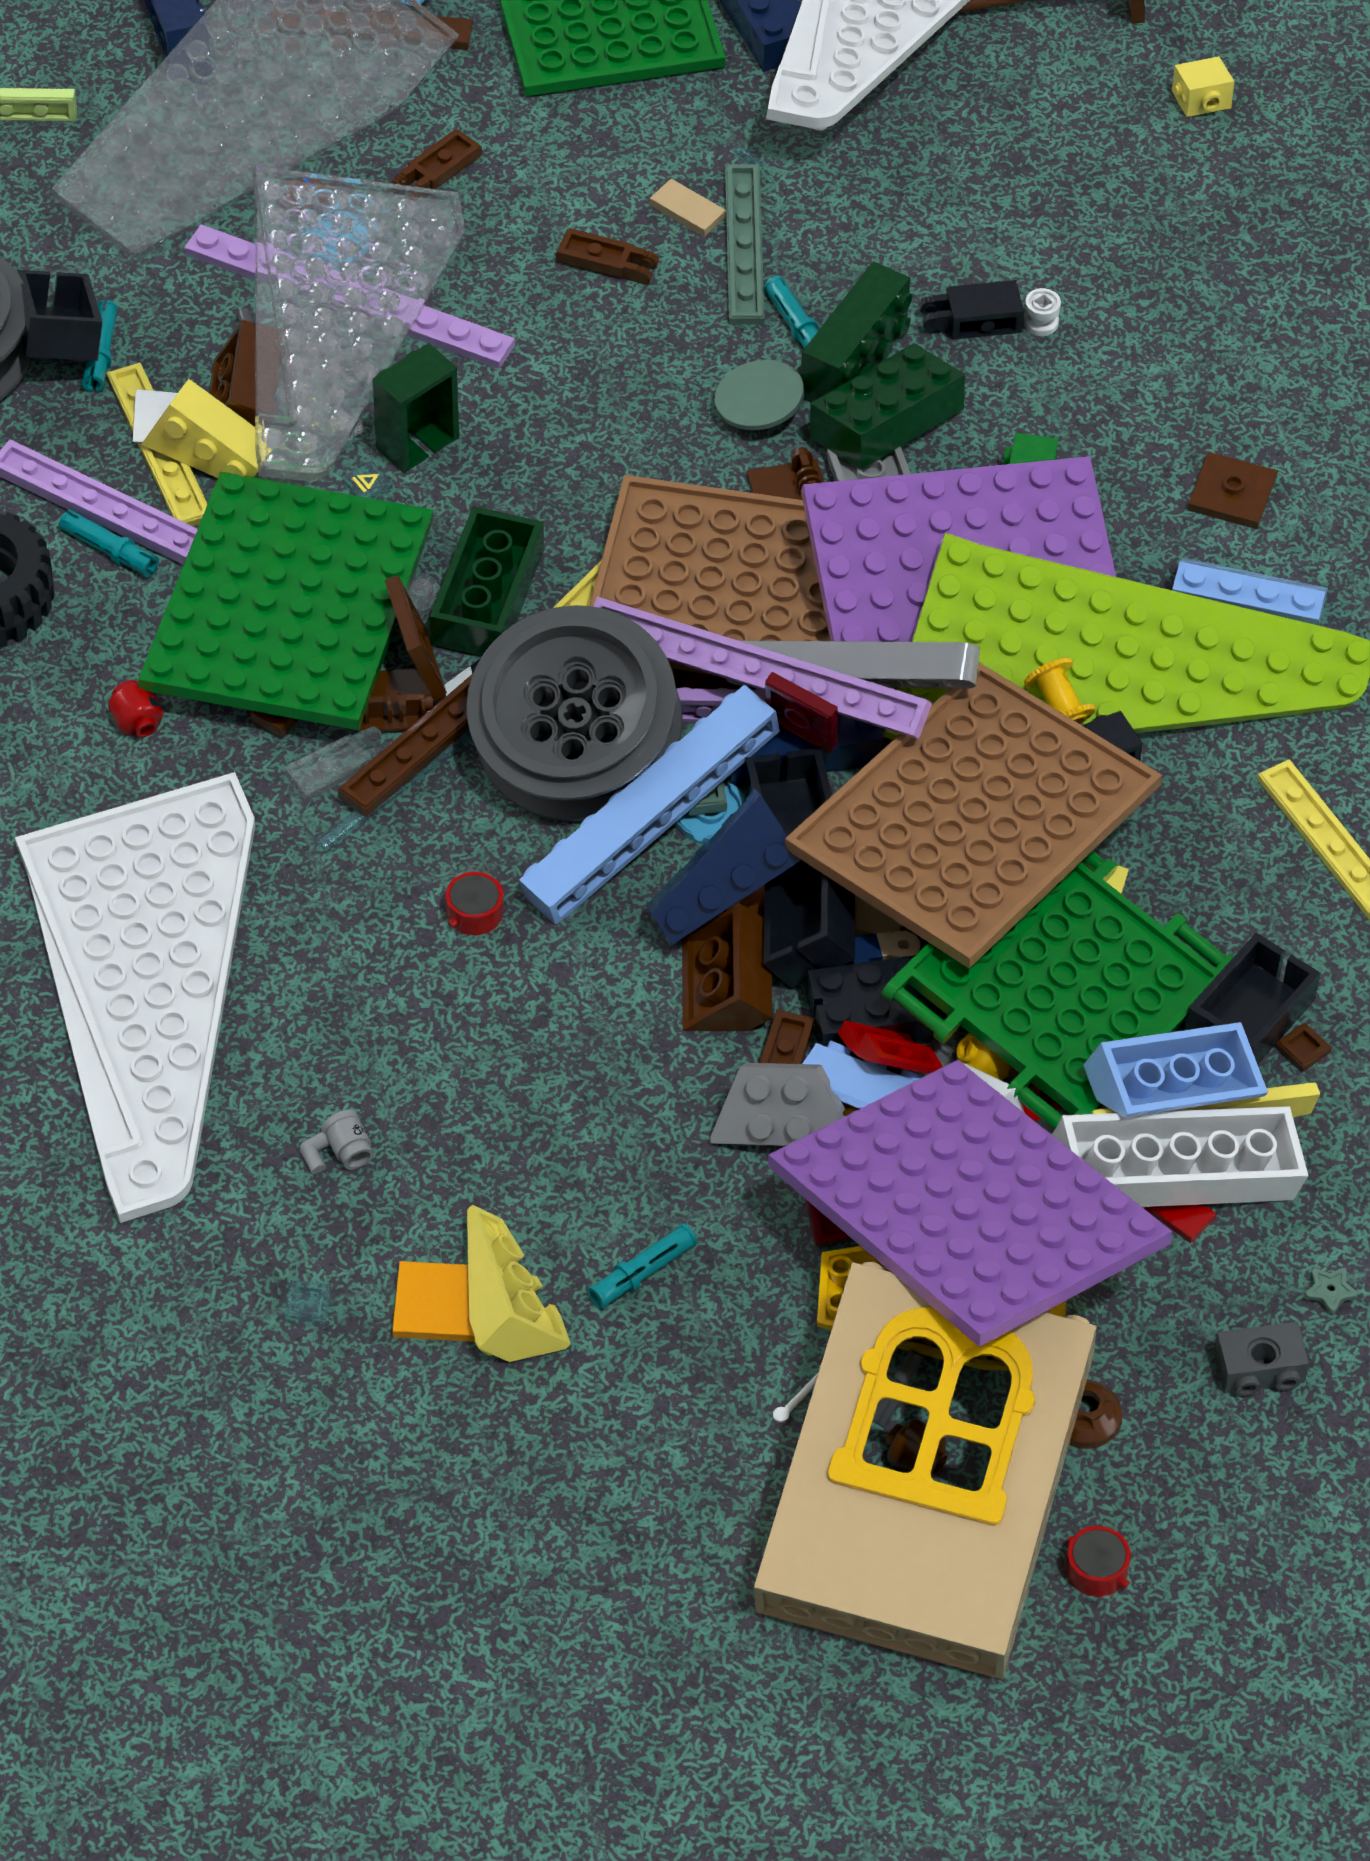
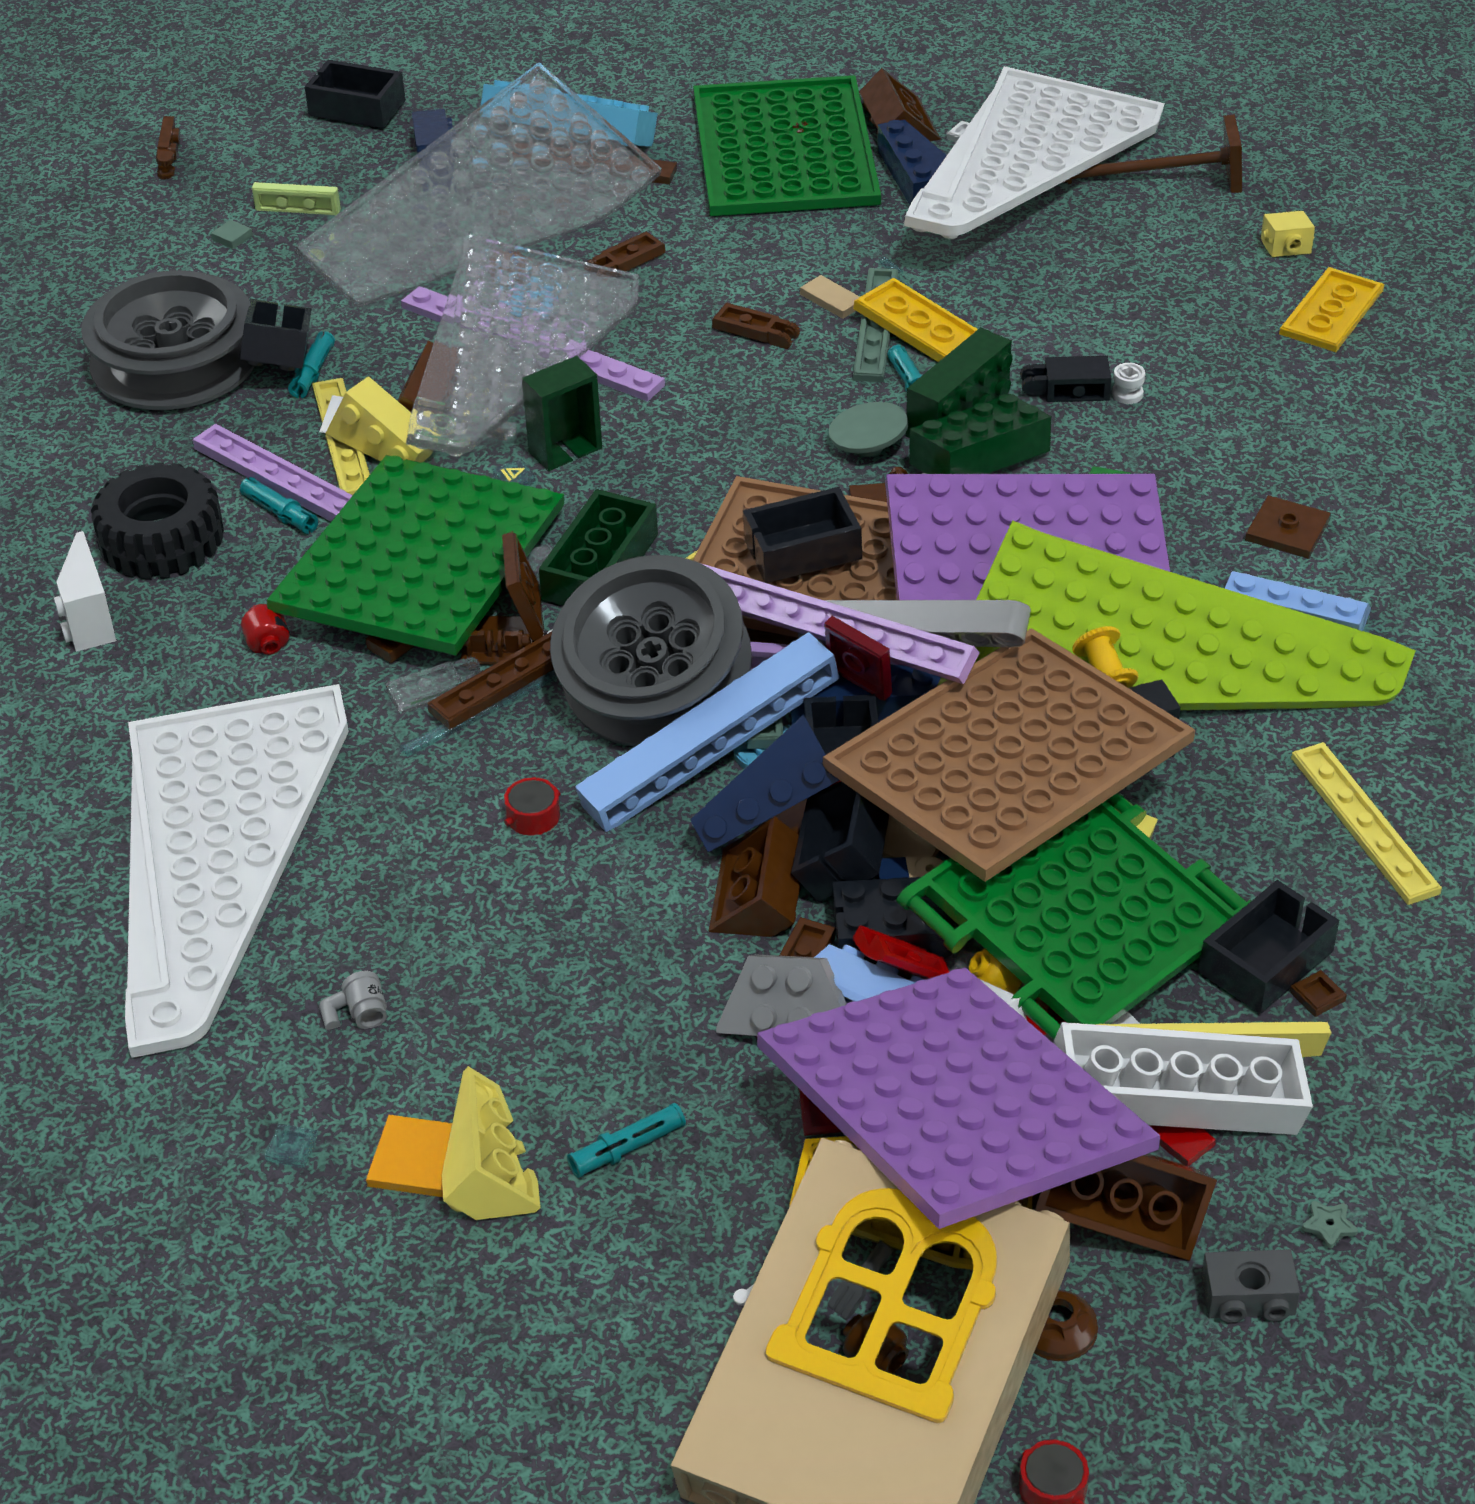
camera: 10 degrees right, 10 degrees down
(715, 555) = (802, 534): none -> black piece
(794, 239) = (914, 318): none -> yellow tile
(1161, 1292) = (1137, 1201): none -> reddish brown slope
(1175, 1070) = (1182, 992): light blue slope -> none
(1260, 189) = (1331, 309): none -> yellow tile

